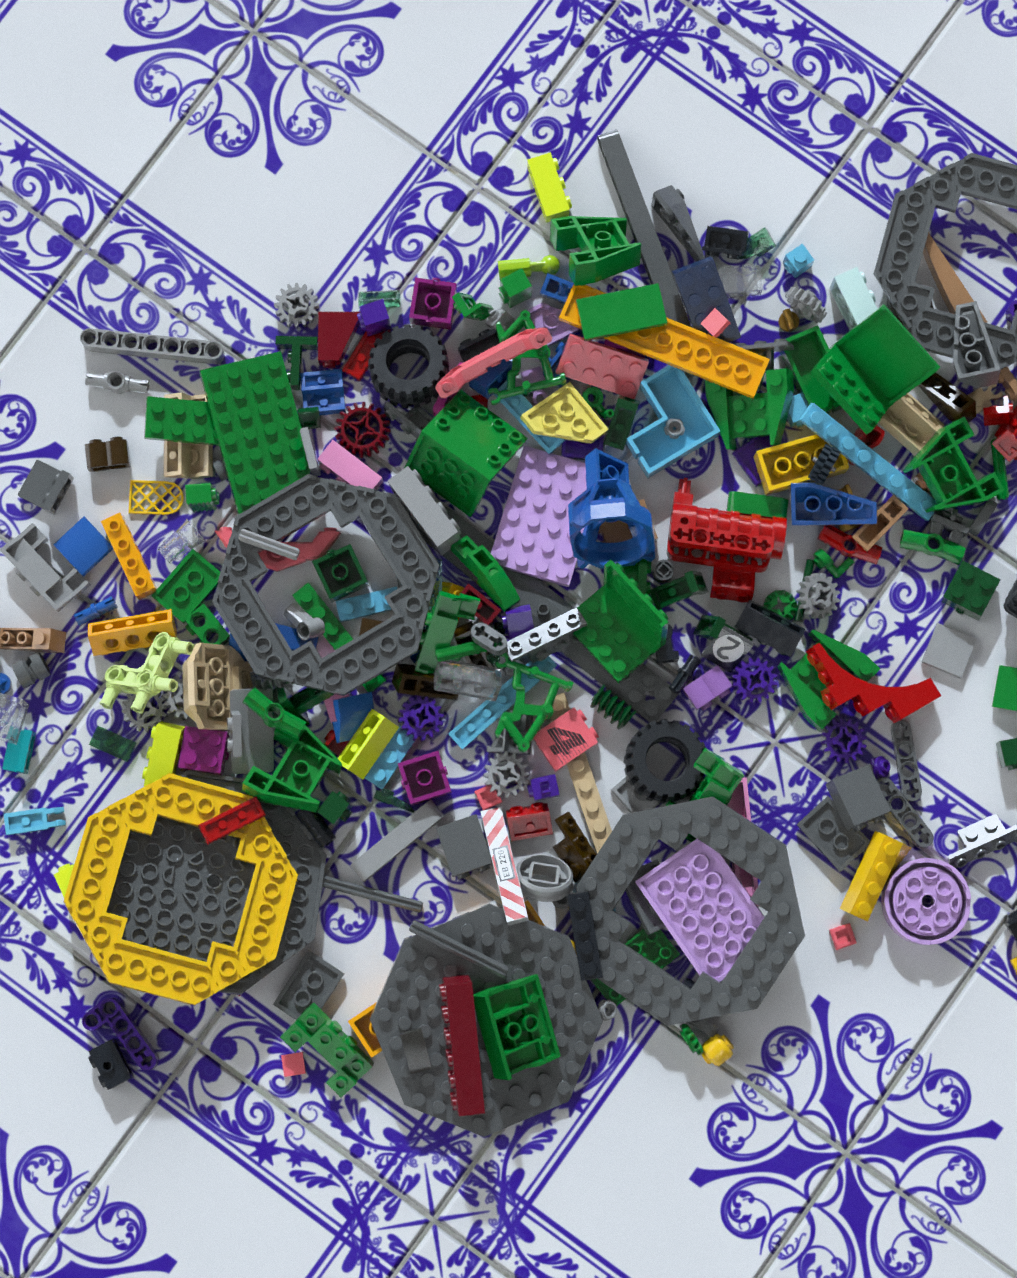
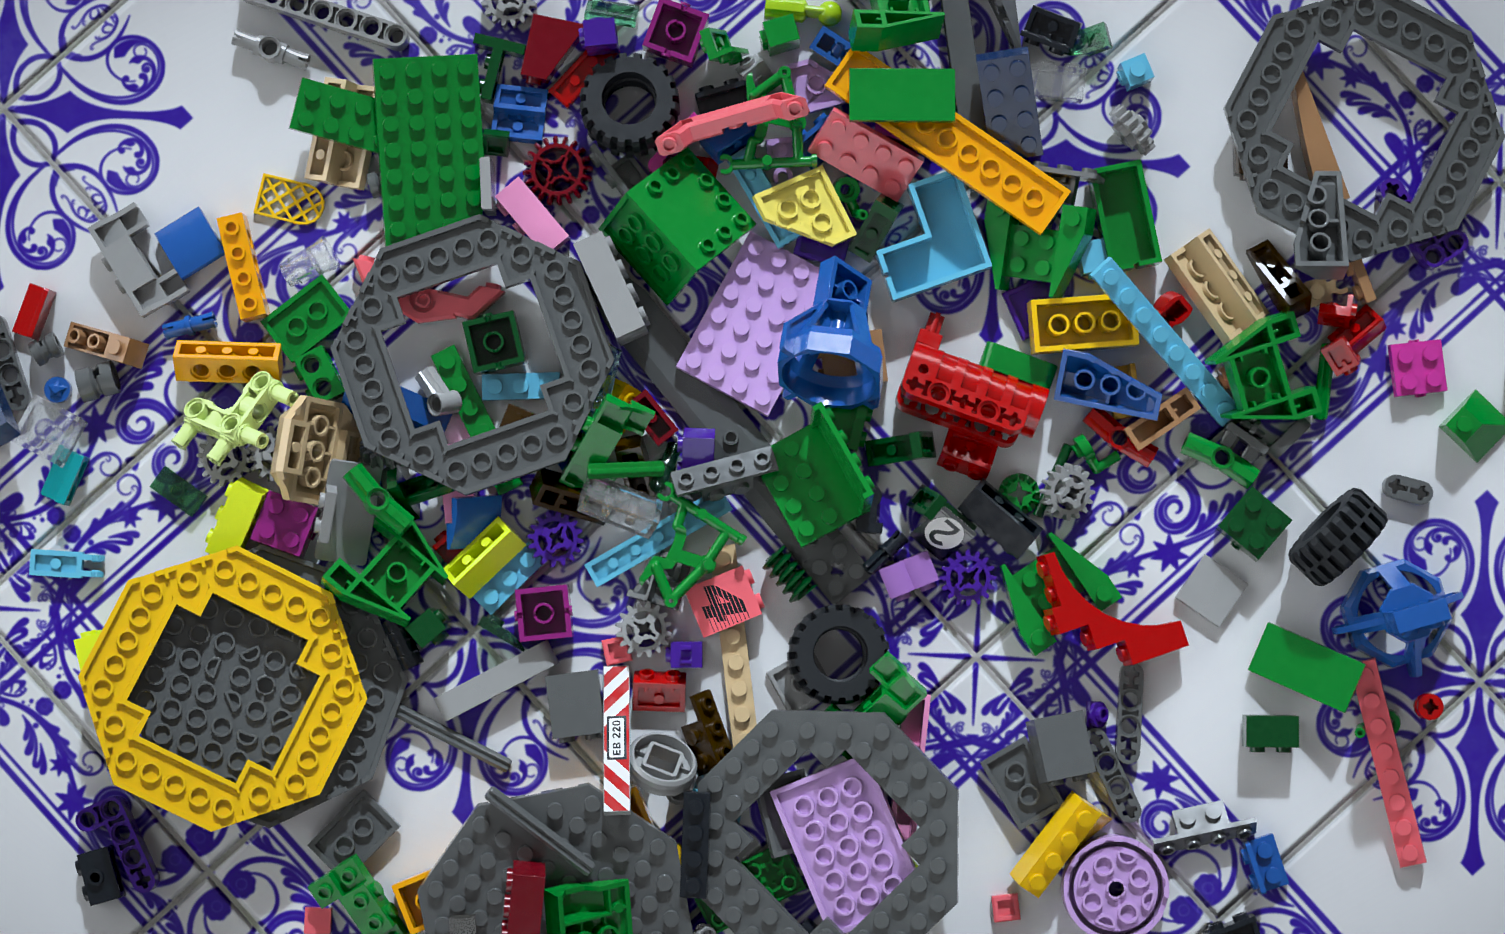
camera: 15 degrees right, 5 degrees up
(45, 486) = (159, 160): dark grey bracket -> none
(107, 455) = (241, 137): dark brown brick -> none
(202, 497) = (345, 214): green brick -> none
(231, 820) = (300, 618): red tile -> none
(269, 544) = (413, 292): light grey axle -> none
(488, 571) = (673, 379): green slope -> none
(488, 640) = (660, 460): beam -> none
(663, 575) = (886, 421): dark grey wheel -> none
(674, 434) = (944, 251): light grey plate -> none
(715, 323) = (1014, 132): coral tile -> none
(788, 320) = (1107, 144): pearl gold plate -> none
(824, 464) = (1108, 335): black wheel -> none
(834, 741) = (1057, 686): dark purple gear -> none
(853, 297) = (1195, 142): light aqua brick -> none
(873, 367) = (1194, 229): green bracket -> none

